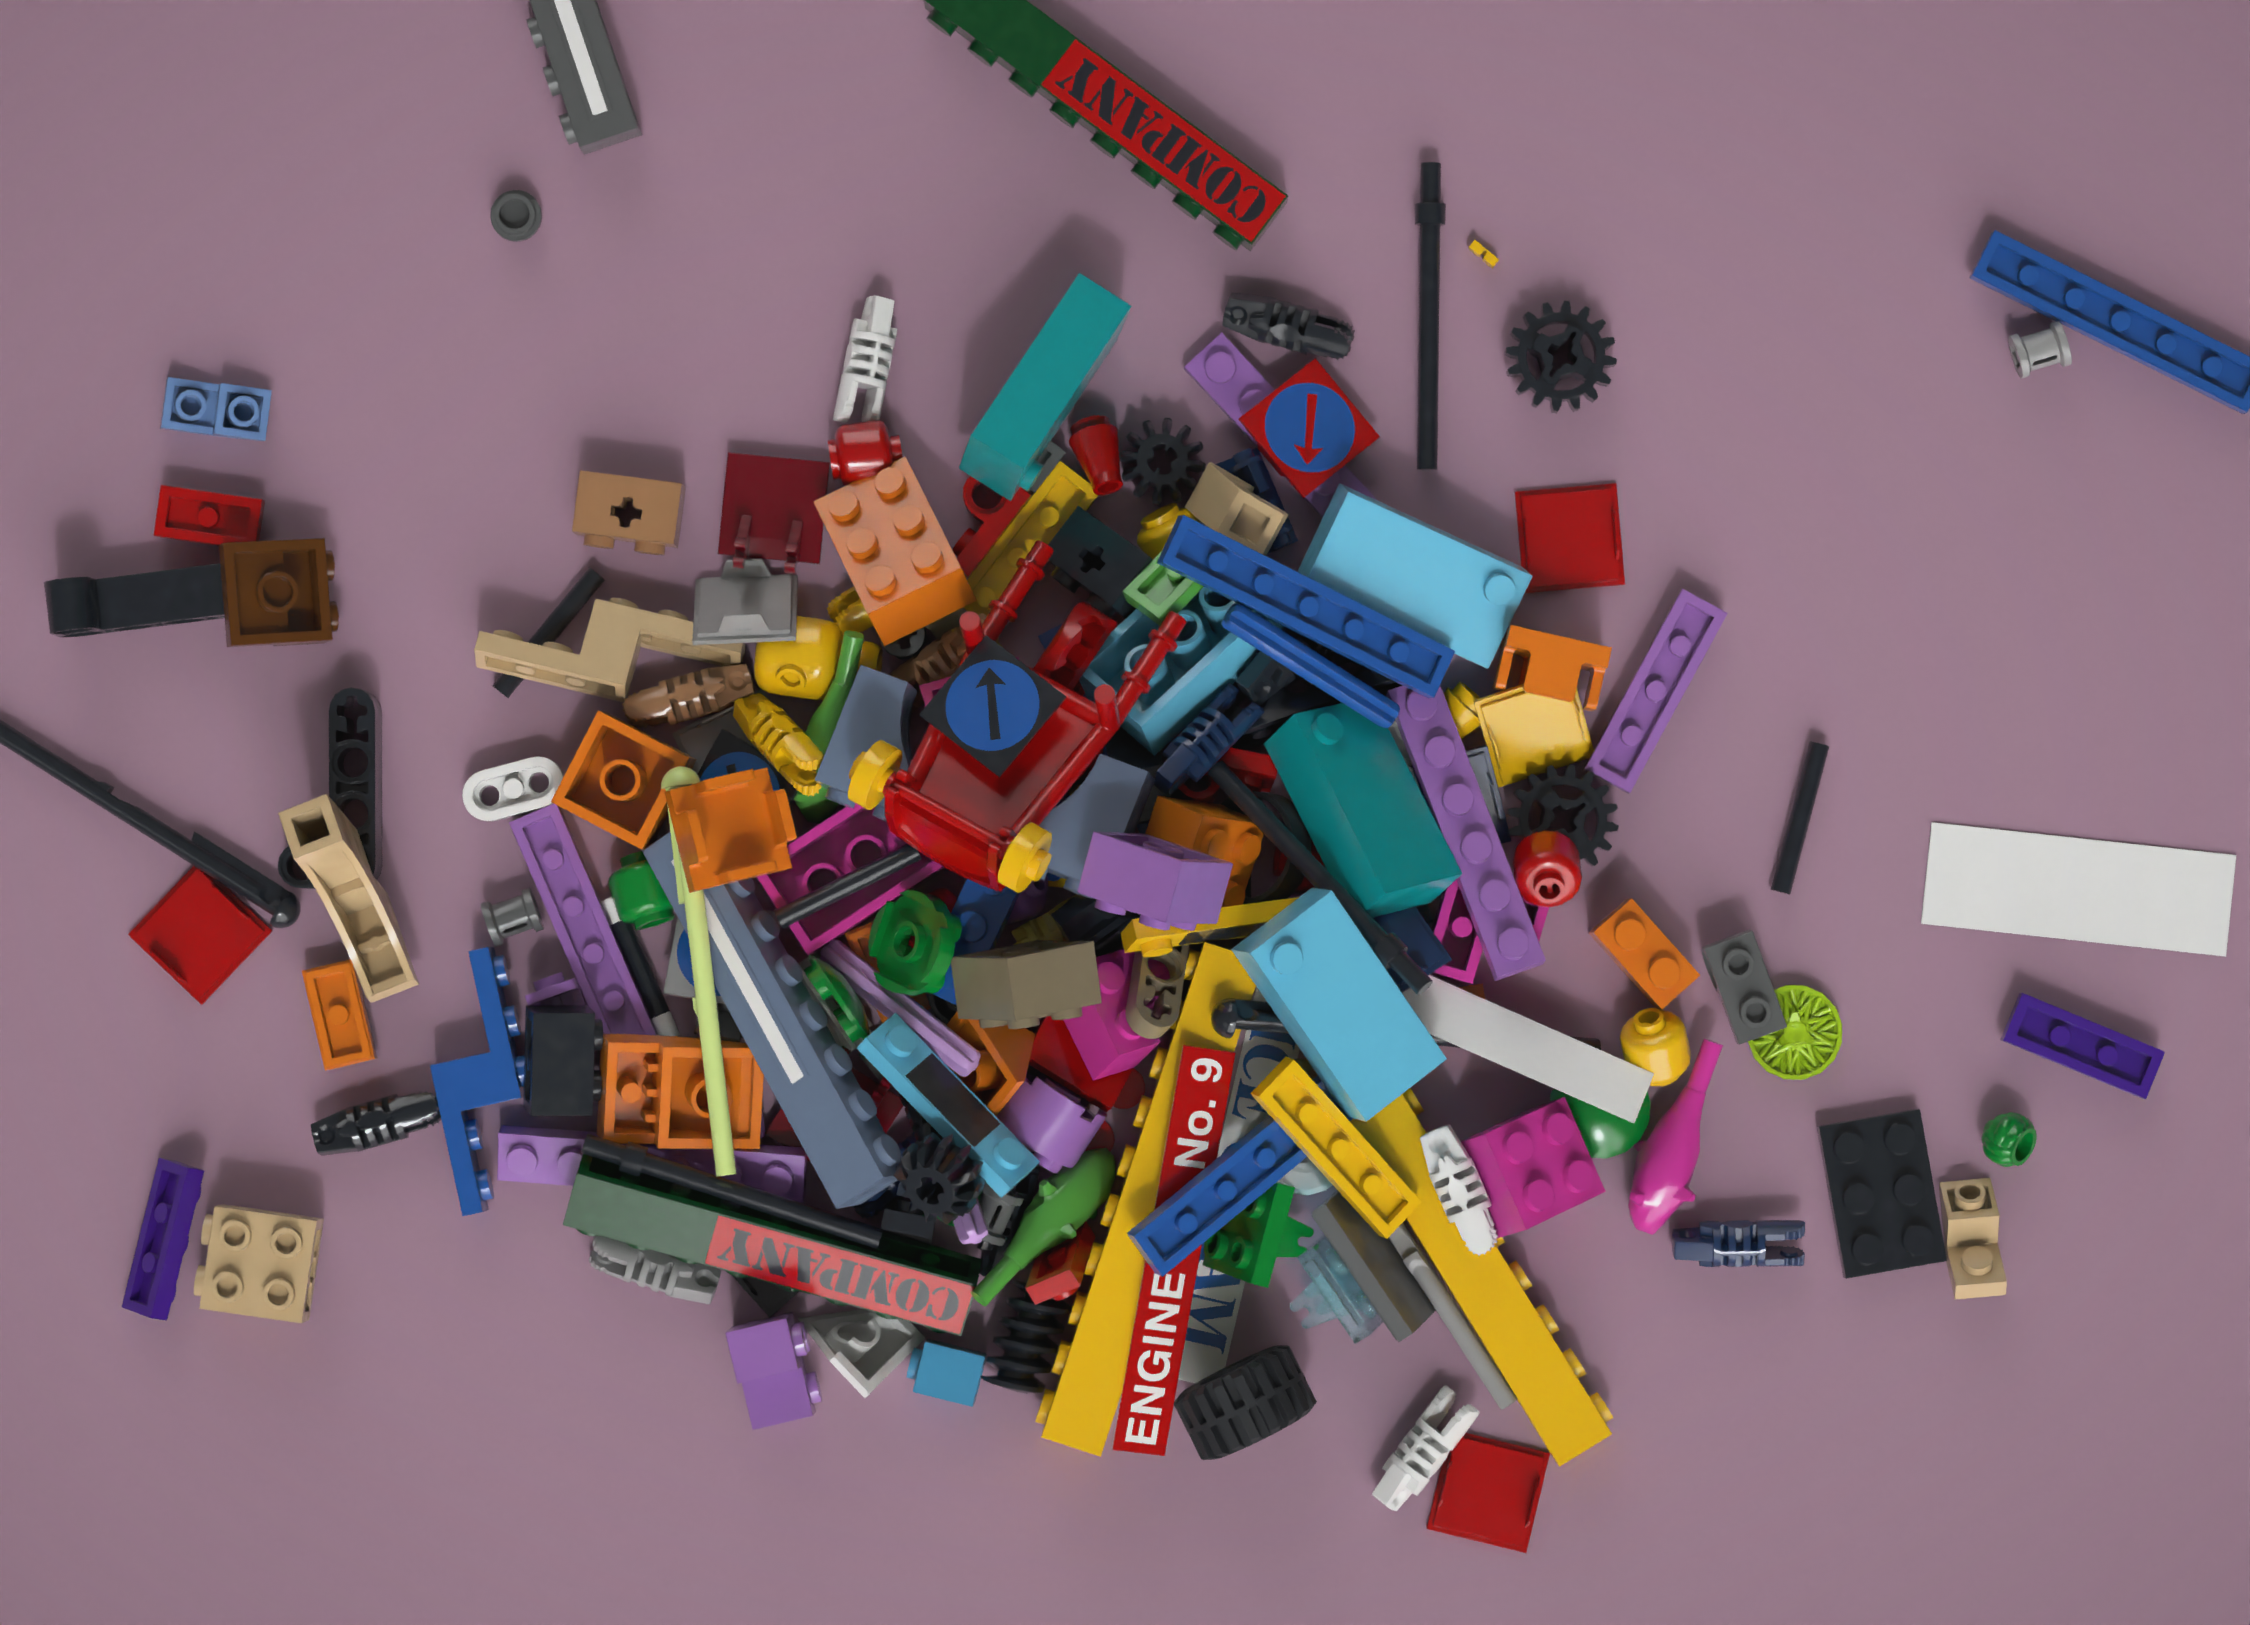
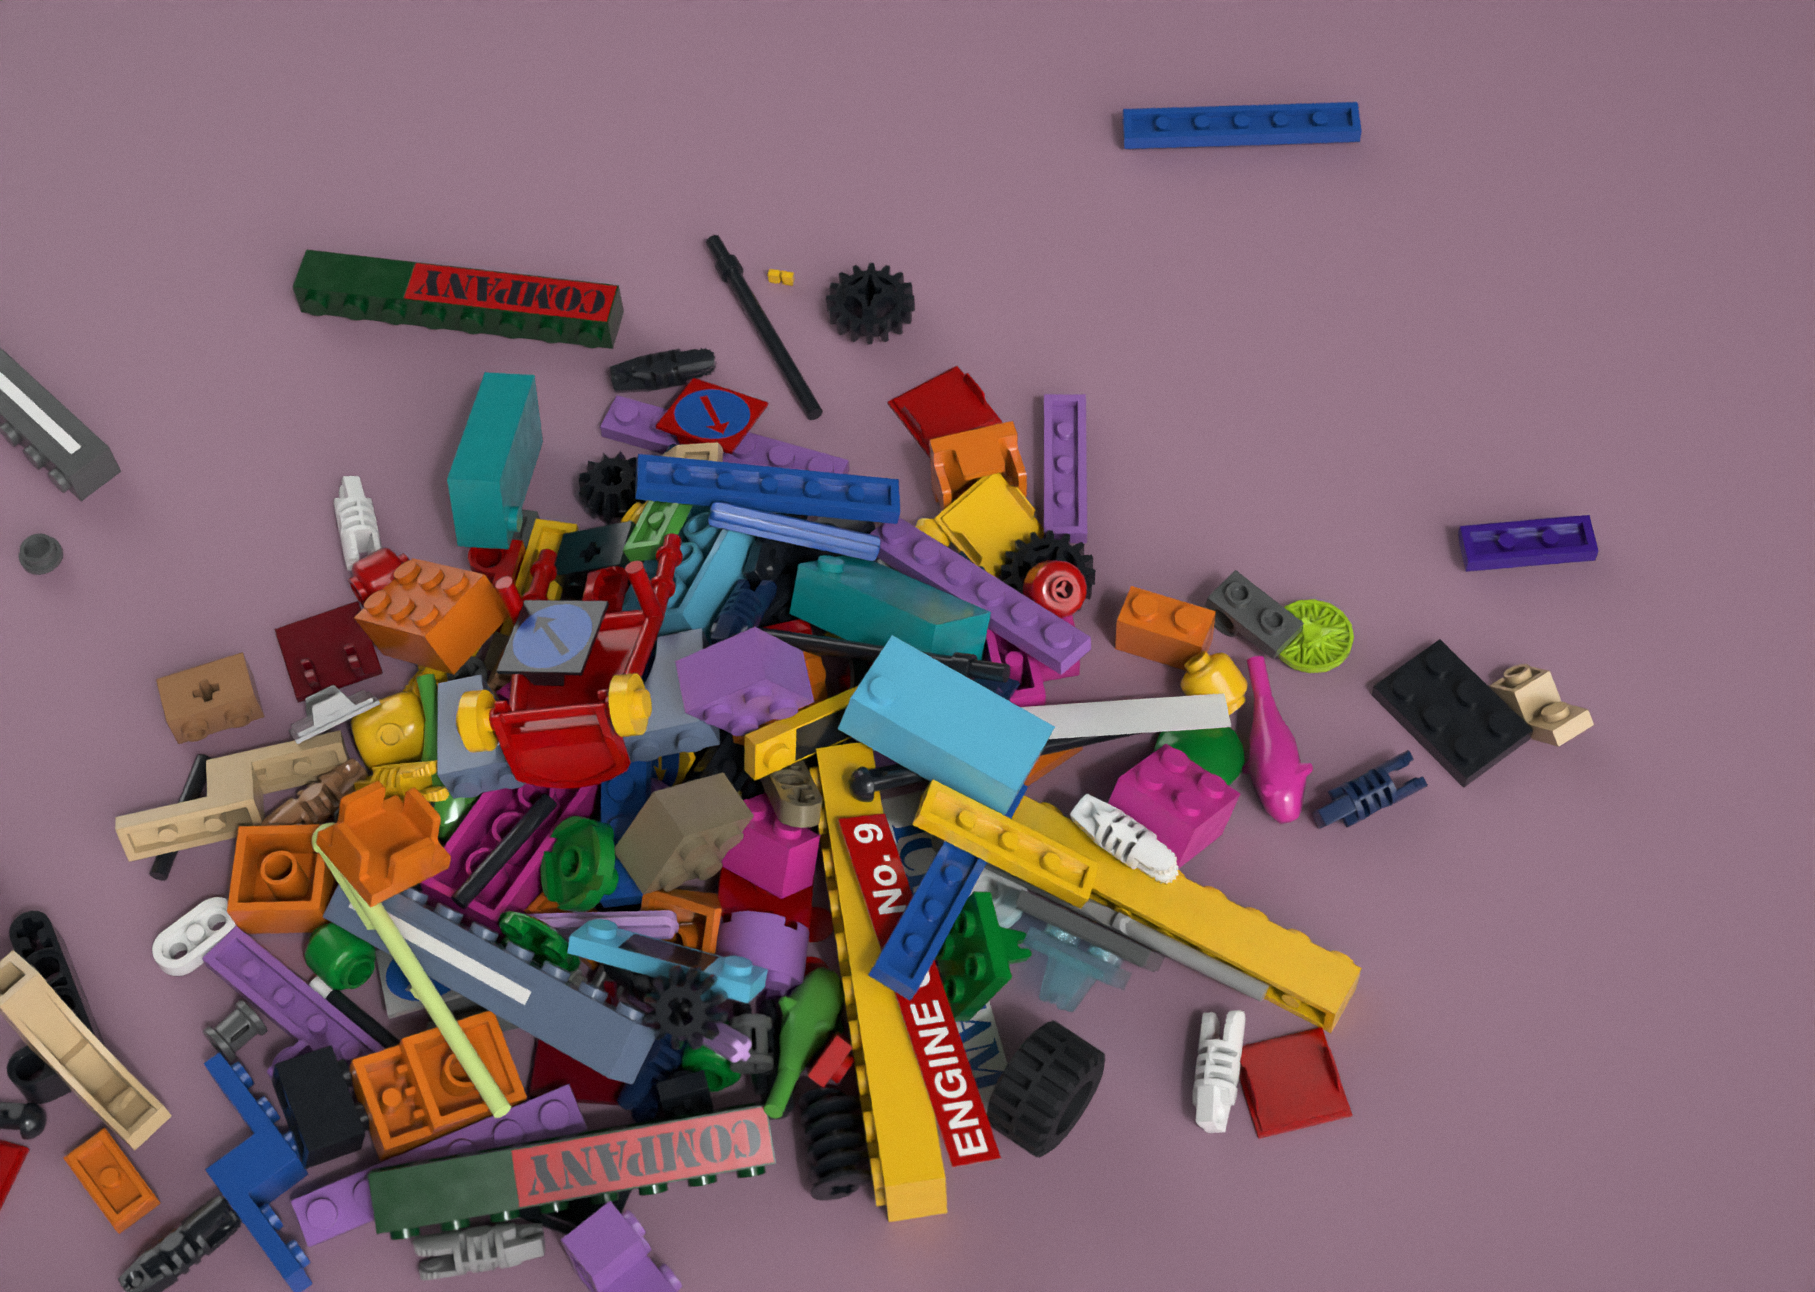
camera: 25 degrees left, 30 degrees down
(635, 1160) = (419, 1145): black bar -> none
(863, 1344) = (701, 1225): white slope -> none
(947, 1371) = (780, 1206): dark azure brick -> none
(1097, 450) = (560, 500): red cone -> none
(1416, 574) = (849, 444): medium azure brick -> none
(1800, 817) = (1222, 502): black bar -> none
(2009, 1139) = (1519, 626): green piece -> none
(2040, 349) = (1198, 161): light grey bush -> none
(2078, 889) = (1451, 457): white sticker -> none

